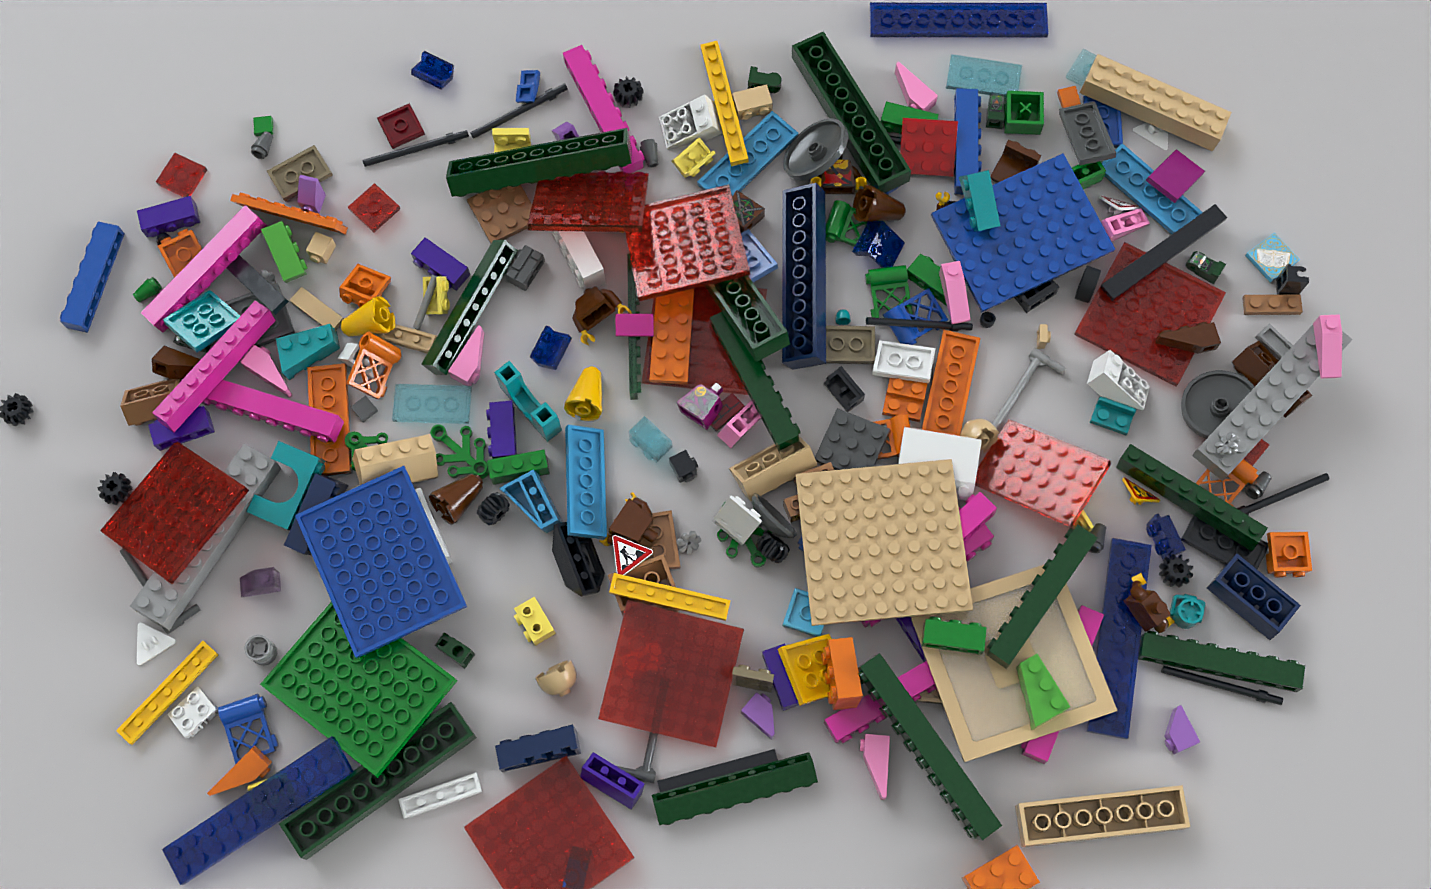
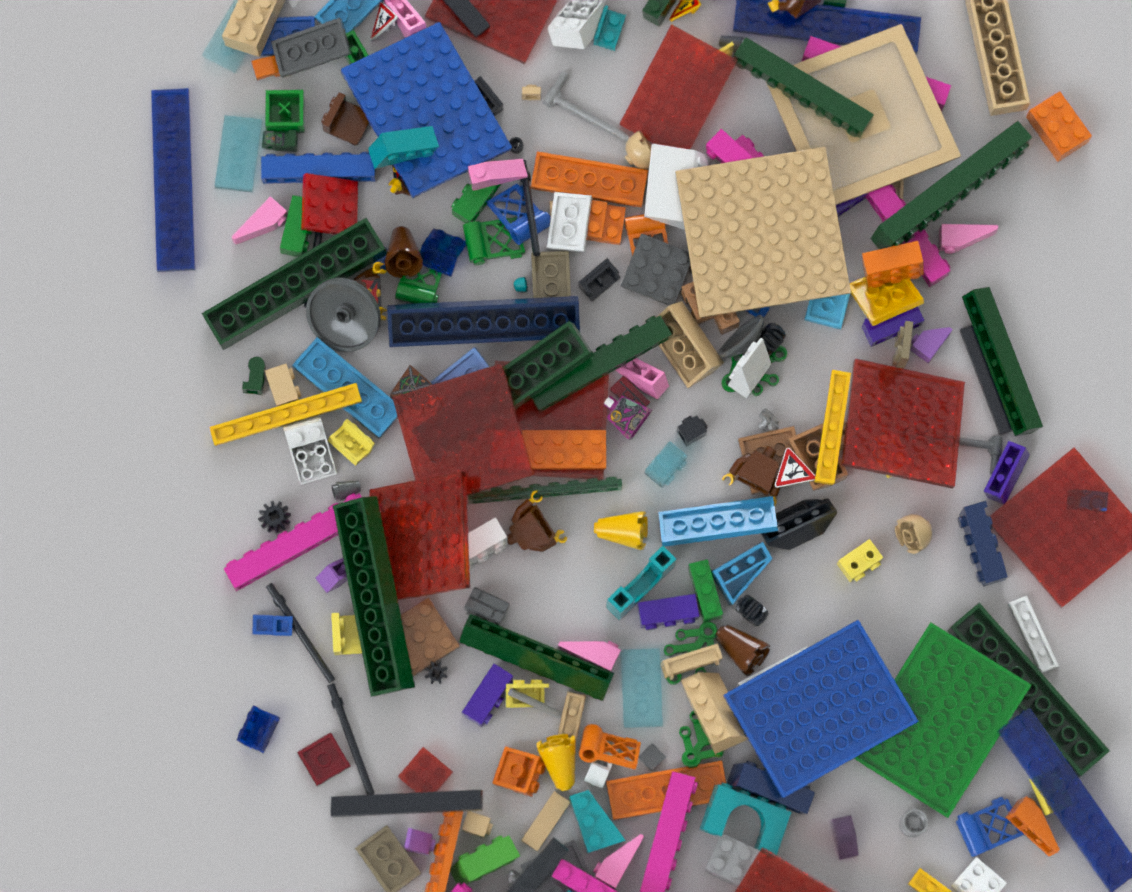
camera: 100 degrees left, 5 degrees up
(343, 184) = (407, 803): none -> black tile
(448, 445) = (691, 661): none -> tan container
(455, 650) = (894, 635): dark green leg -> none
(467, 220) = (441, 674): none -> black gear
(550, 348) = (575, 571): clear blue bracket -> none
(634, 325) = (551, 485): dark pink slope -> none
(954, 636) = (848, 165): green brick -> none
(1040, 692) = (895, 88): bright green wedge -> none
(1087, 284) = (475, 49): black tyre -> none

